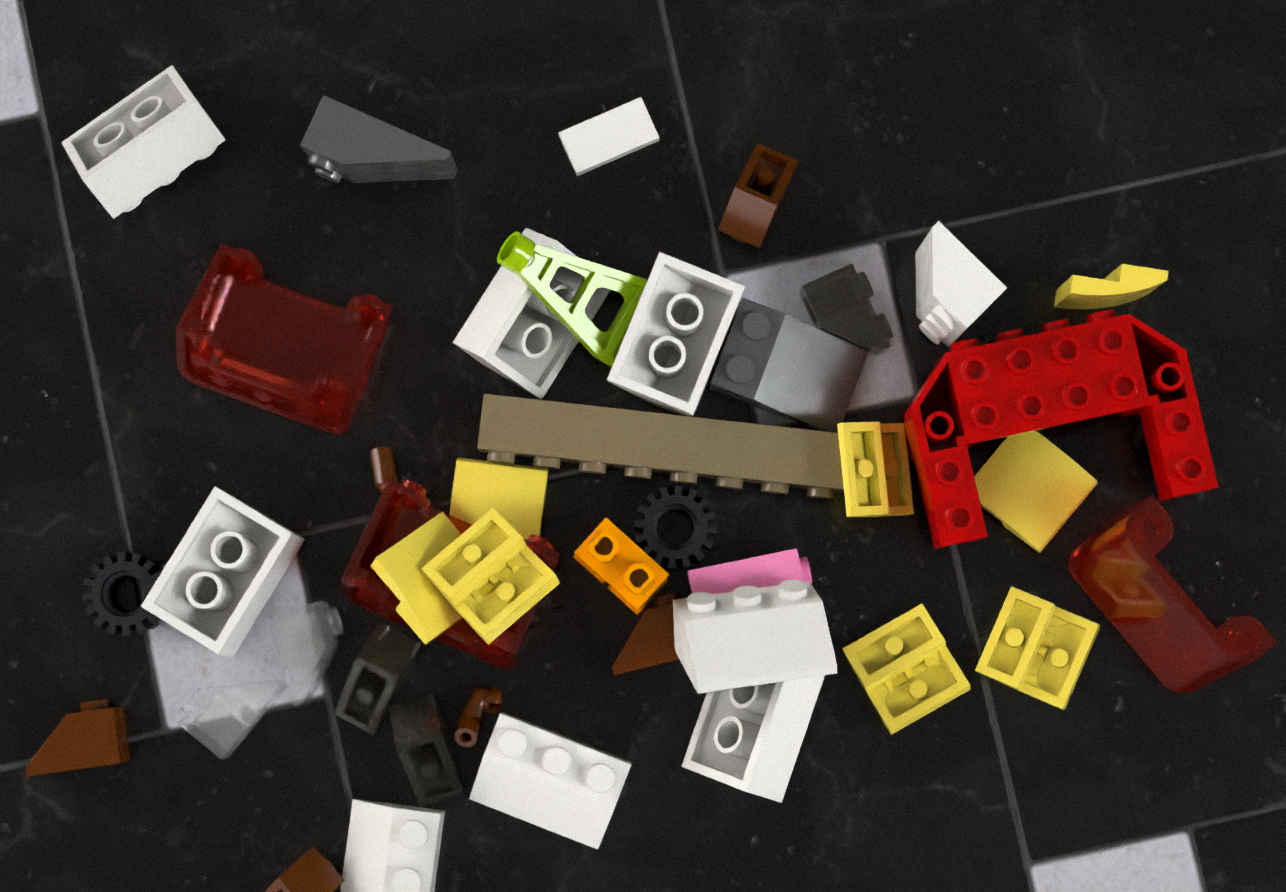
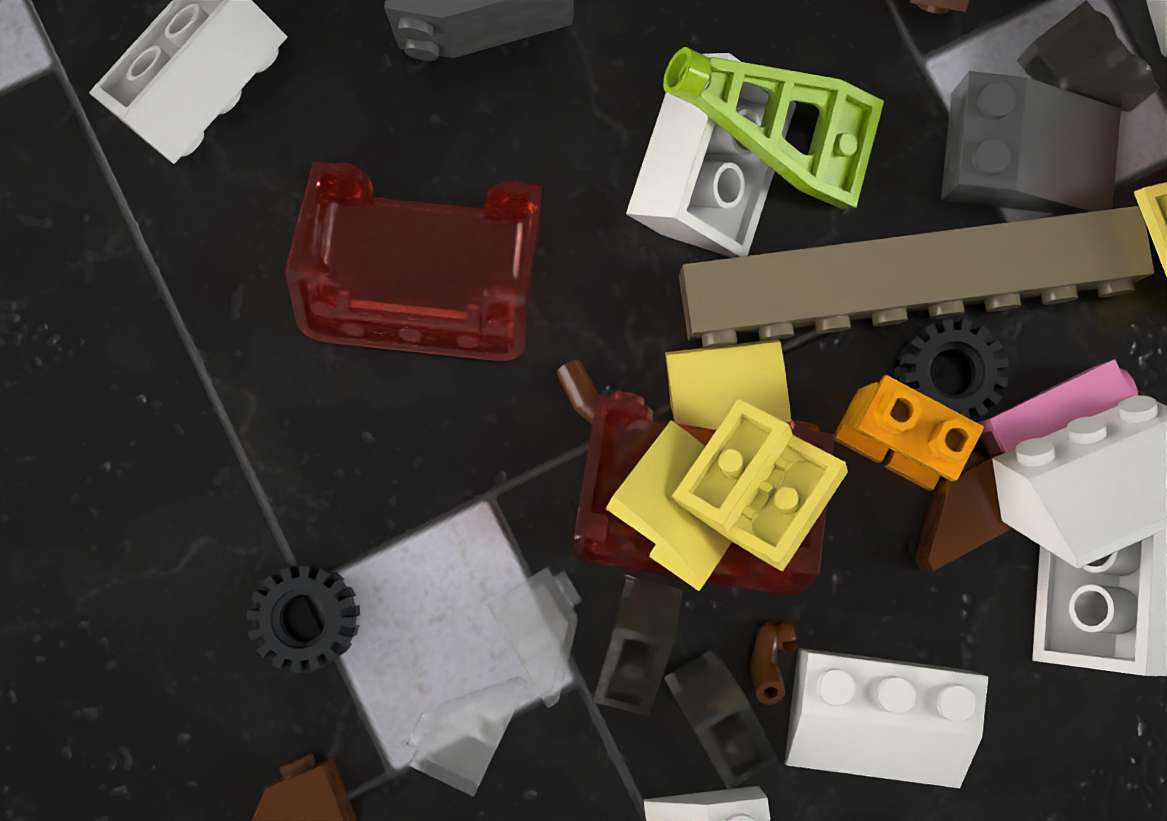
camera: 15 degrees left, 0 degrees up
(222, 573) = (415, 563): white slope -> none
(676, 335) = (901, 137): white slope -> none

